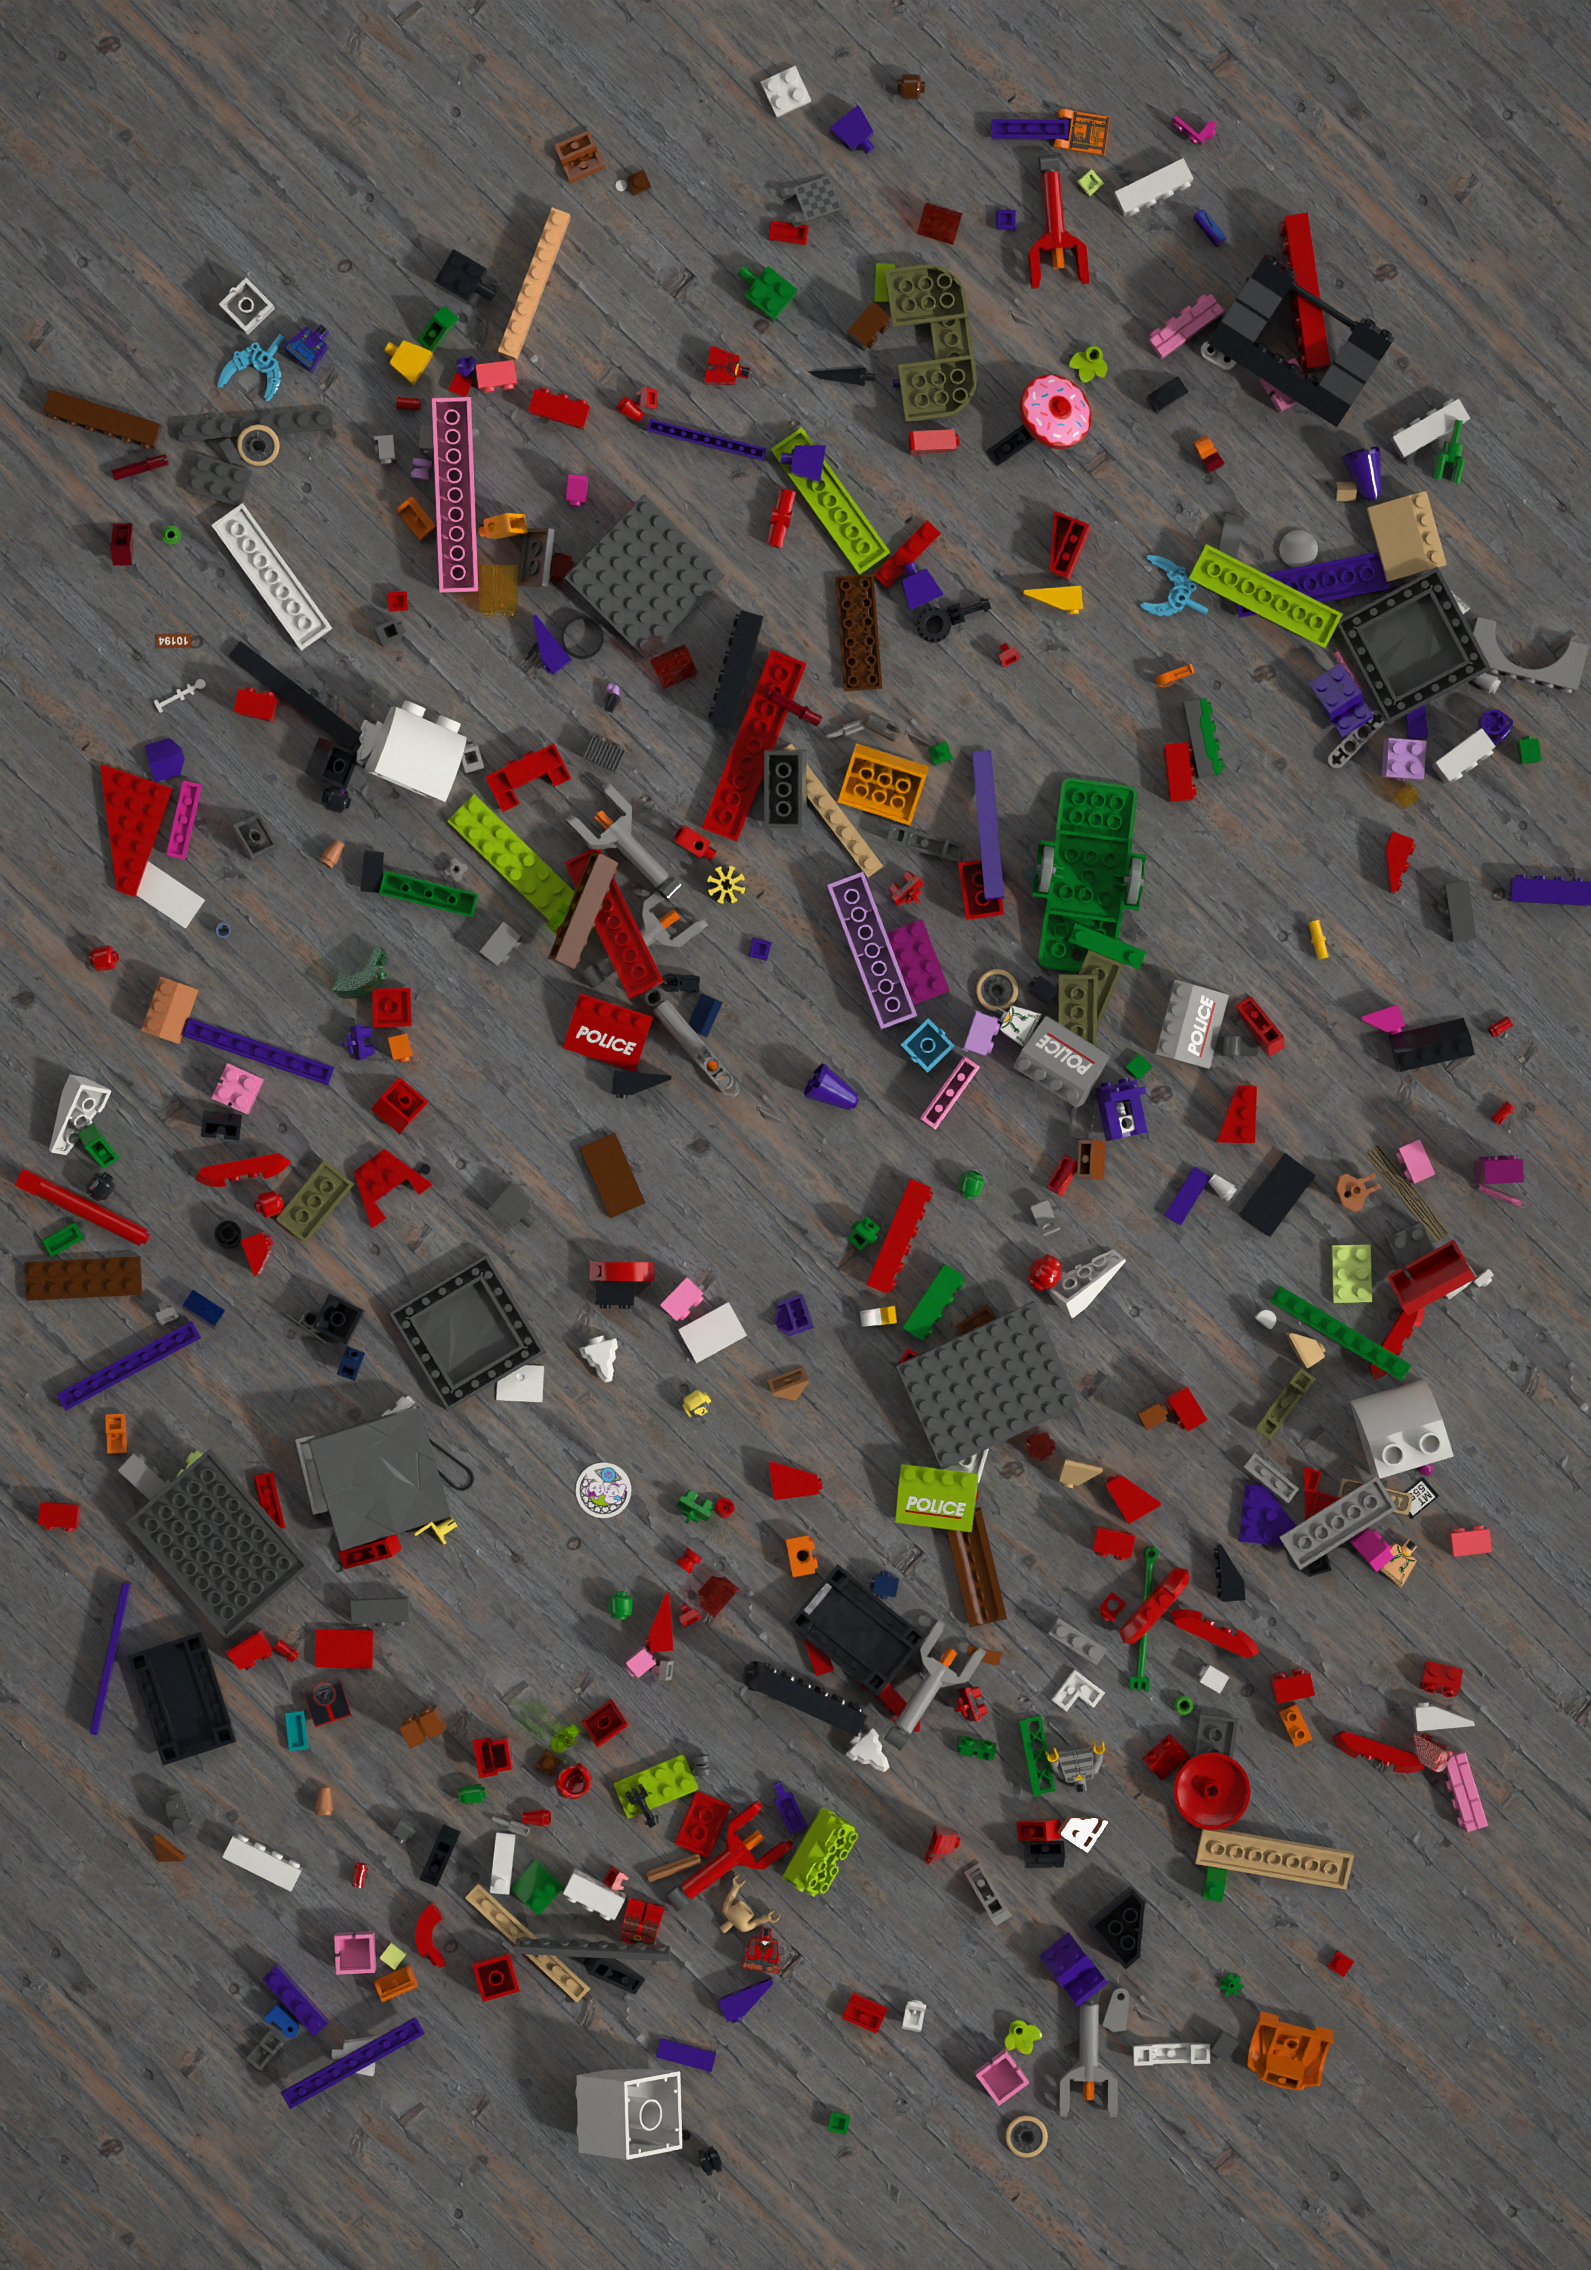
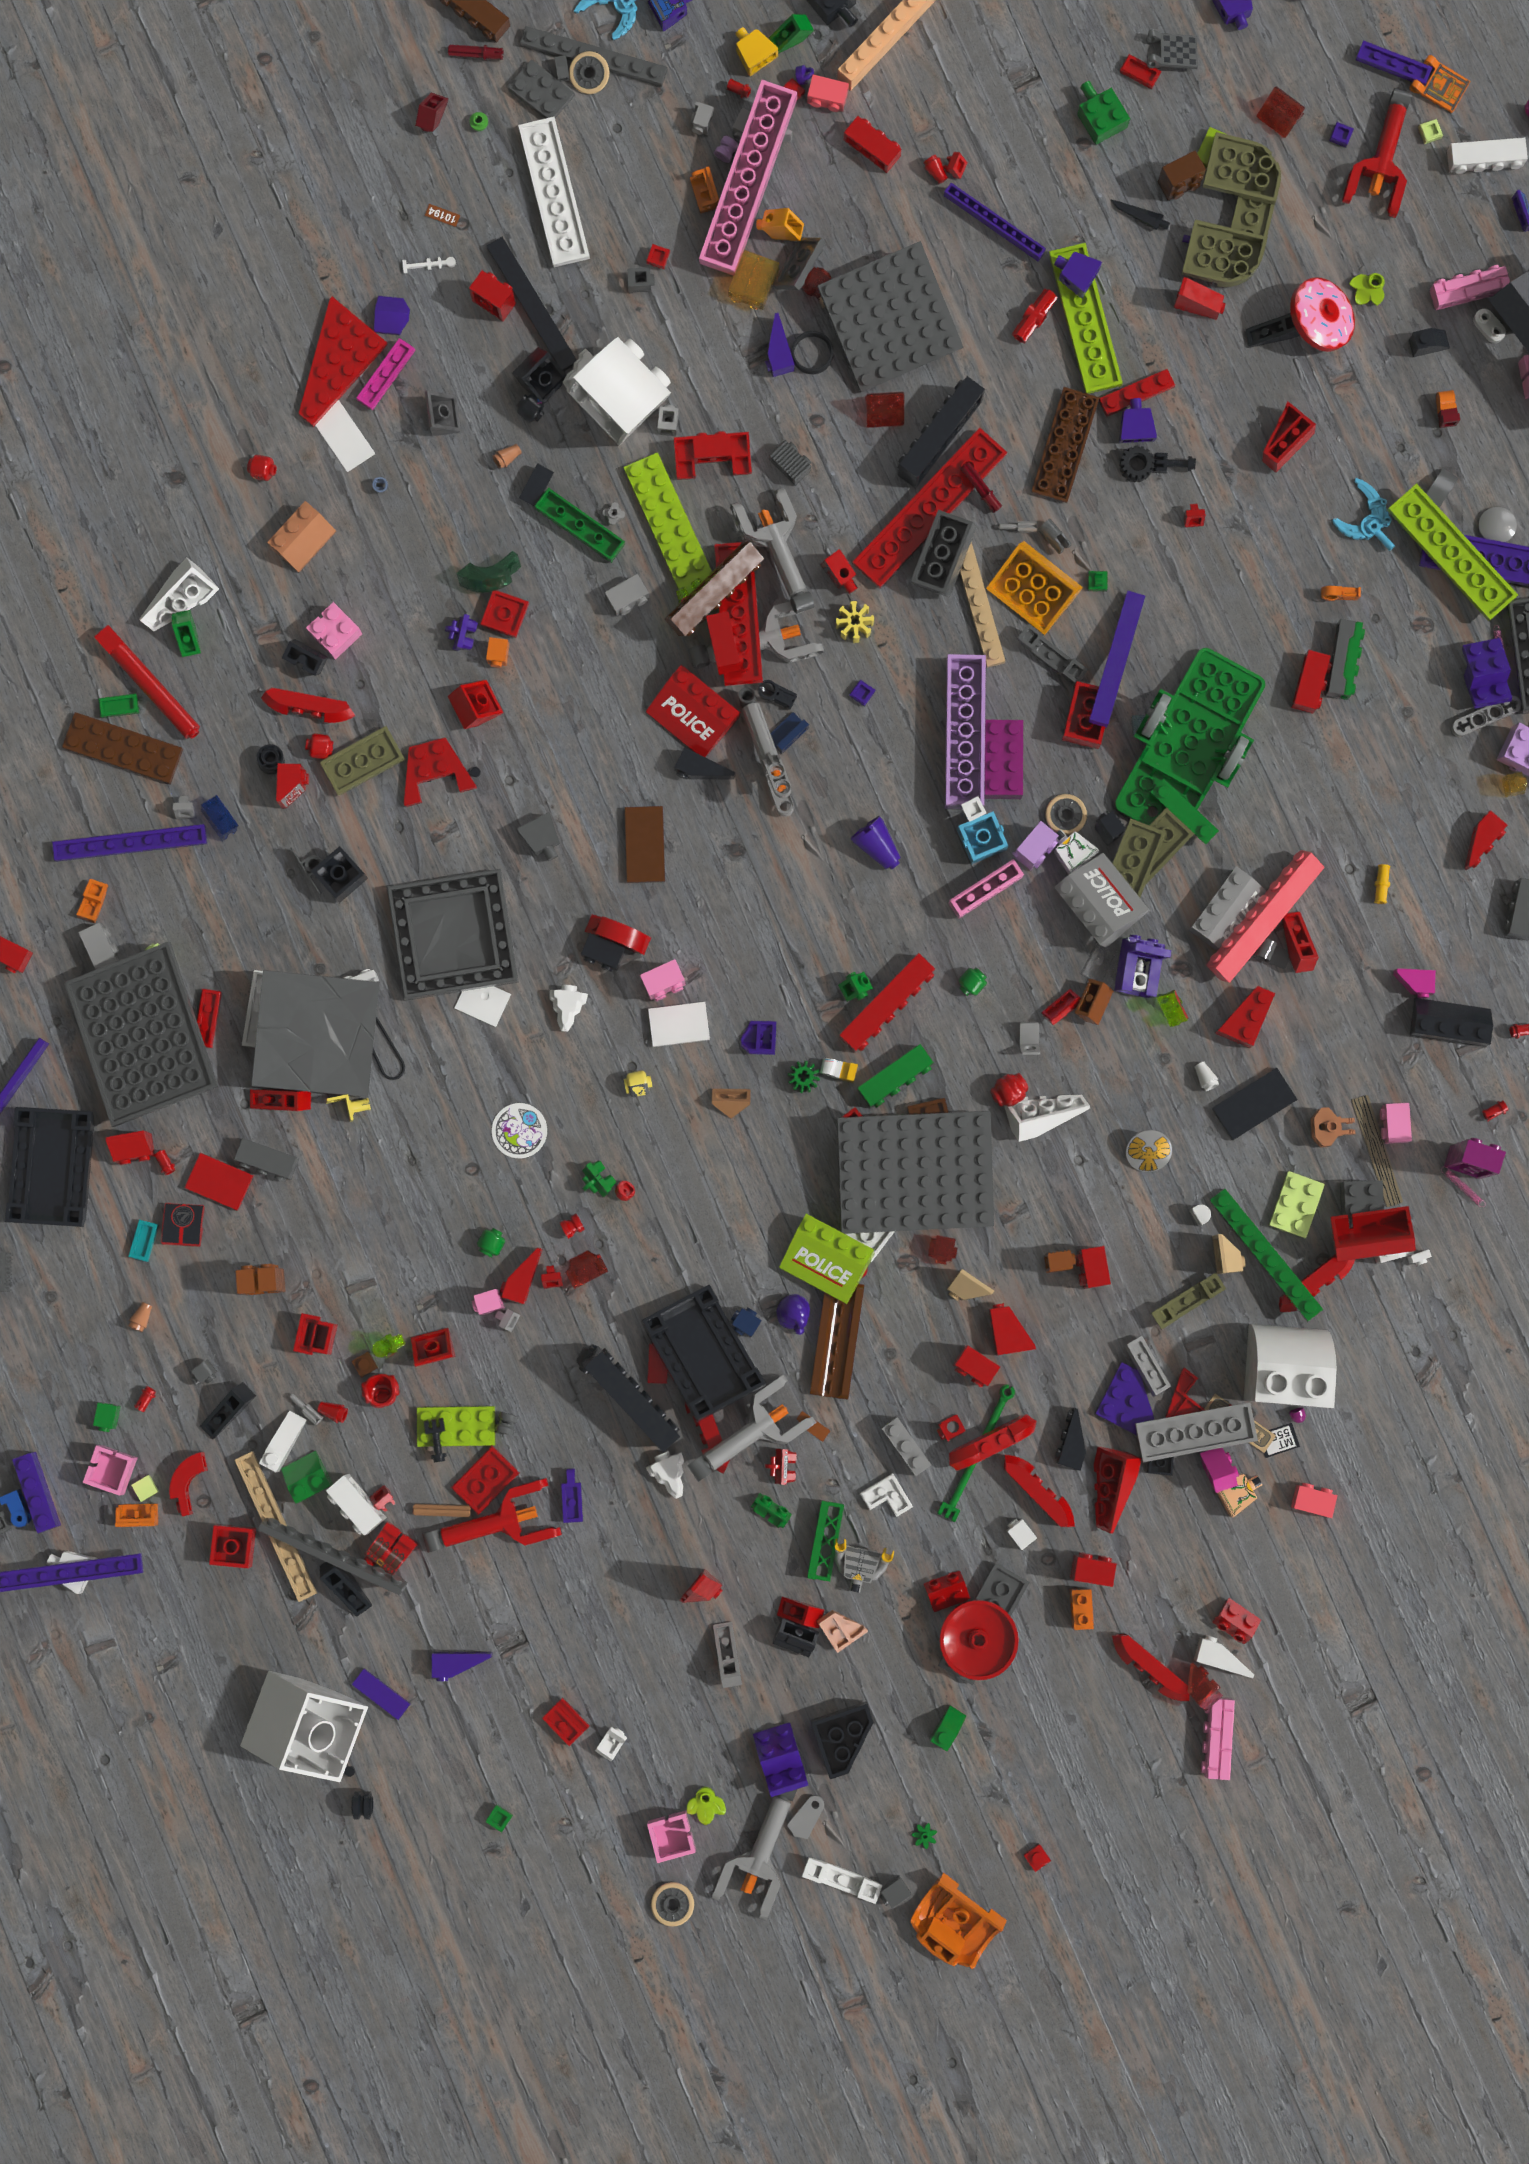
camera: 25 degrees right, 5 degrees down
(100, 1186) = (172, 669): black head -> none
(258, 1051) = (367, 606): dark purple tile -> none
(262, 1862) = (60, 1351): white brick -> none
(330, 1905) = (106, 1416): none -> green brick
(351, 1359) = (333, 919): dark blue brick -> none
(472, 1794) = (281, 1365): green brick -> none
(576, 490) = (860, 217): dark pink slope -> none
(613, 959) = (724, 642): none -> red brick
(614, 697) = (819, 416): black arm -> none
(724, 368) = (1035, 165): red torso -> none
(740, 1913) = (486, 1578): tan piece -> none
(762, 1952) = (492, 1625): torso -> none
(792, 1482) = (698, 1191): red slope -> none
(800, 1567) = (677, 1251): orange brick -> none
(815, 1859) = (575, 1556): lime brick -> none
(843, 1332) = (799, 1072): none -> green gear
(908, 1024) = (973, 808): none -> white plate
(909, 891) = (1019, 692): red hips -> none
(925, 1559) = (793, 1313): none -> dark purple piece
(1060, 598) = (1261, 483): yellow slope -> none
(1138, 1066) = (1170, 935): green tile -> none
(1166, 1136) = (1172, 1008): none -> clear neon green hips
(1187, 1196) = (1170, 1072): dark purple tile -> none
(1188, 1709) = (989, 1548): bright green plate -> none
(1195, 1278) = (1148, 1151): none -> shield
(1220, 1015) = (1265, 916): none -> coral brick
(1274, 1858) = (1013, 1729): tan plate -> none
(1281, 1594) = (1115, 1480): none -> red wedge

